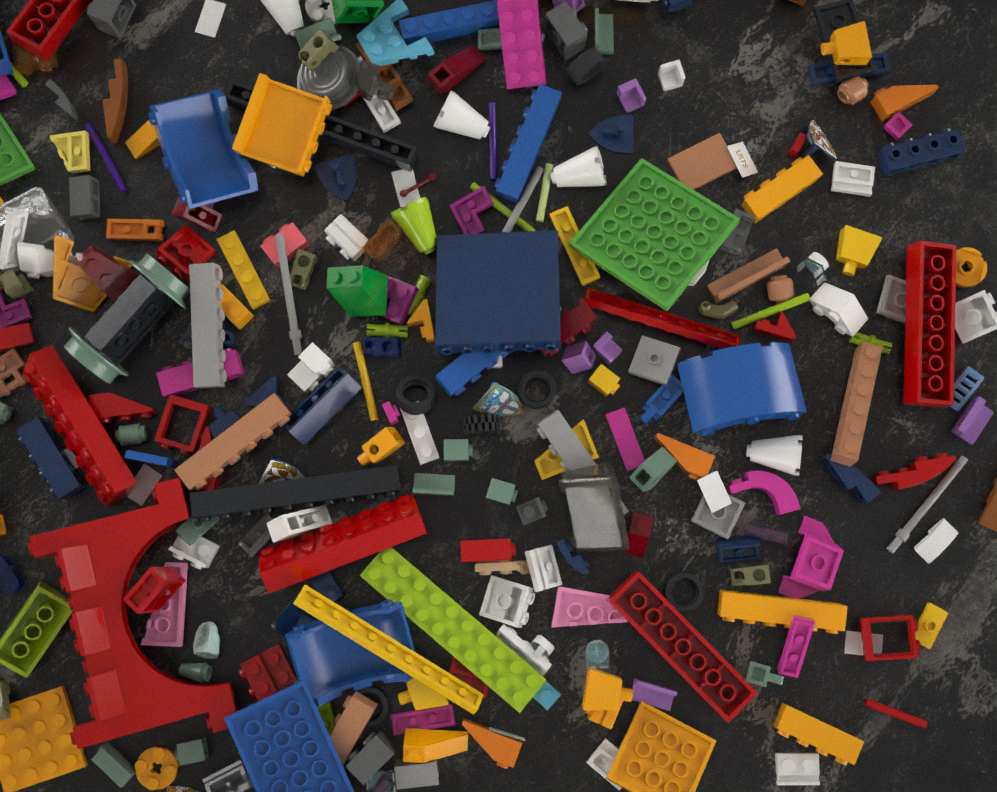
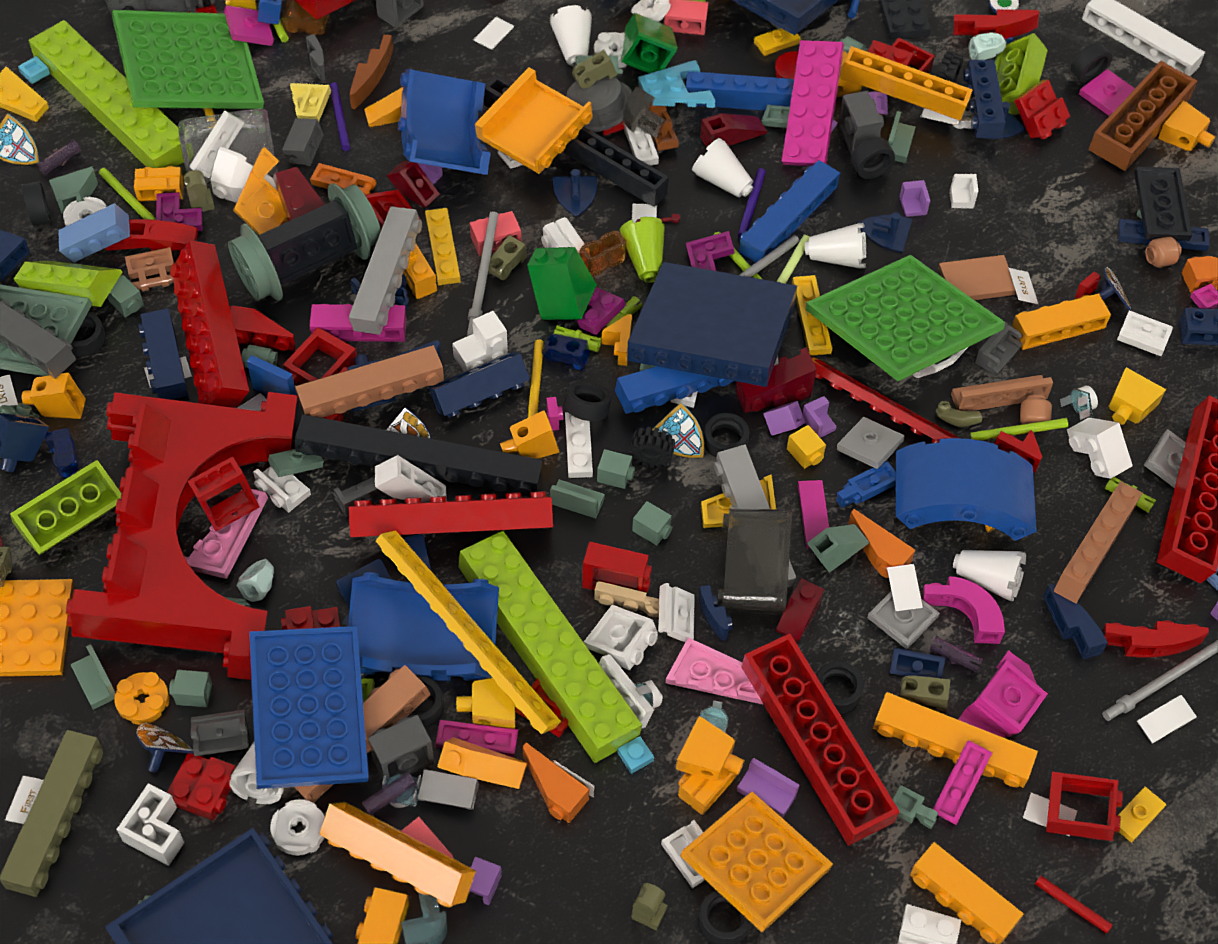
camera: 15 degrees right, 25 degrees down
(532, 511) = (682, 555): dark grey bracket -> none
(849, 45) = (1165, 202): light orange torso -> none

